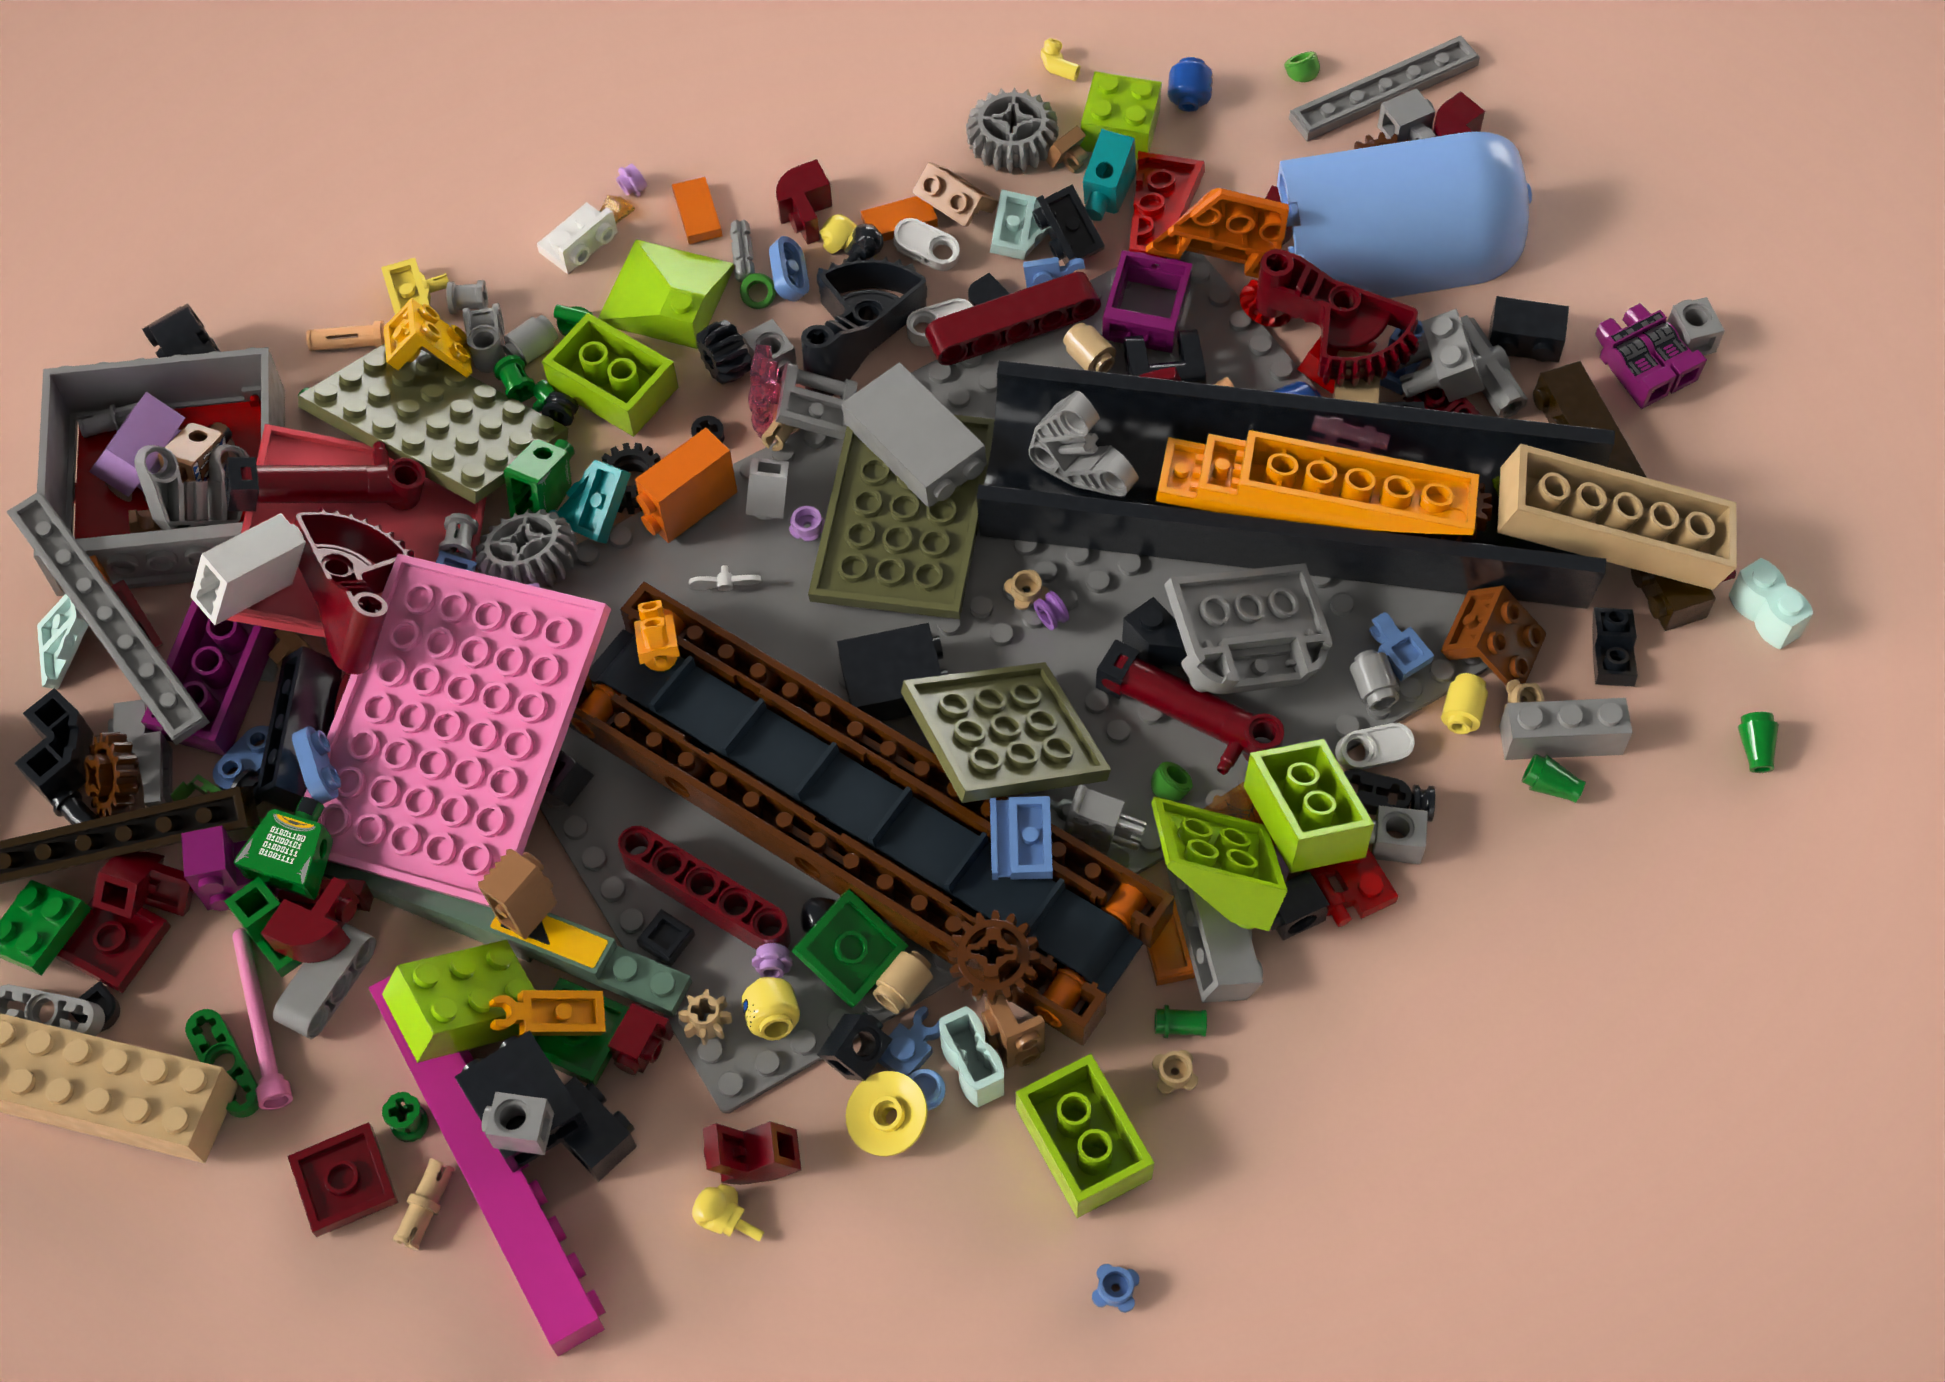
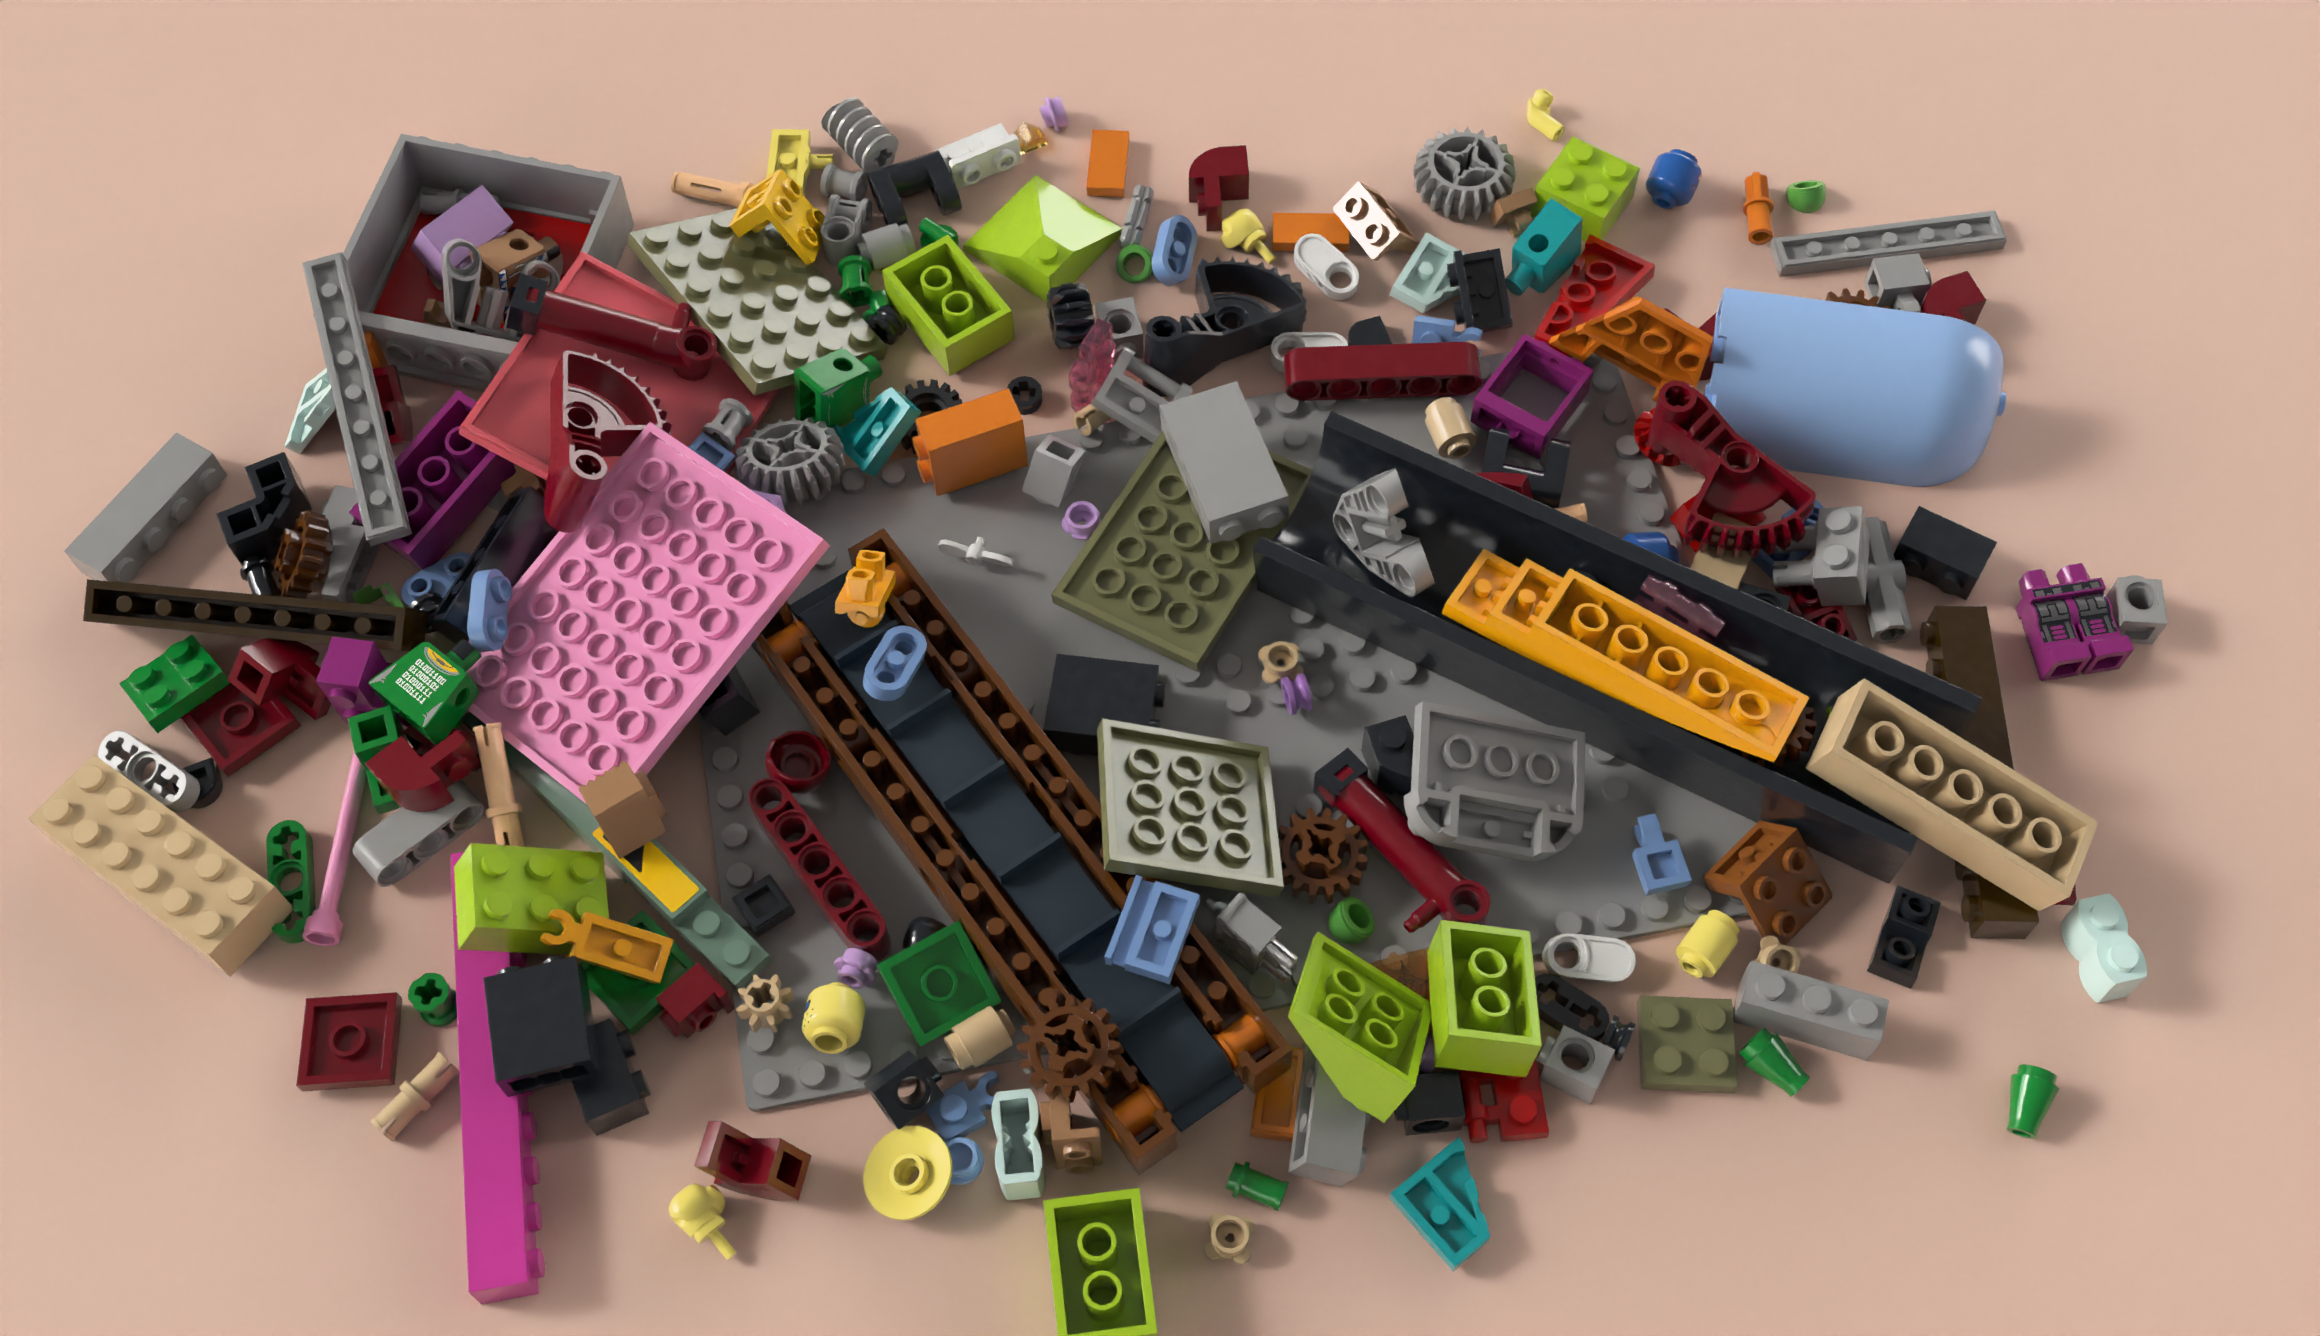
camera: 20 degrees right, 0 degrees up
(179, 334) = (552, 139): black brick -> none
(247, 568) = (493, 390): white brick -> none
(387, 918) = (498, 783): none -> light nougat pin
(465, 249) = (860, 134): none -> light grey piece
(531, 1136) = (530, 1064): light grey brick -> none
(538, 264) = (910, 178): none -> black connector
(647, 804) = (798, 761): none -> dark red hair
(707, 691) = (892, 666): none -> medium blue plate
(866, 242) = (1262, 247): black piece -> none
(1127, 741) = (1324, 837): none -> reddish brown gear
(1268, 89) = (1758, 208): none -> orange axle
(1338, 983) = (1445, 1206): none -> teal wing
(1375, 679) = (1616, 884): light grey brick -> none
(1478, 789) = (1687, 1044): none -> olive plate

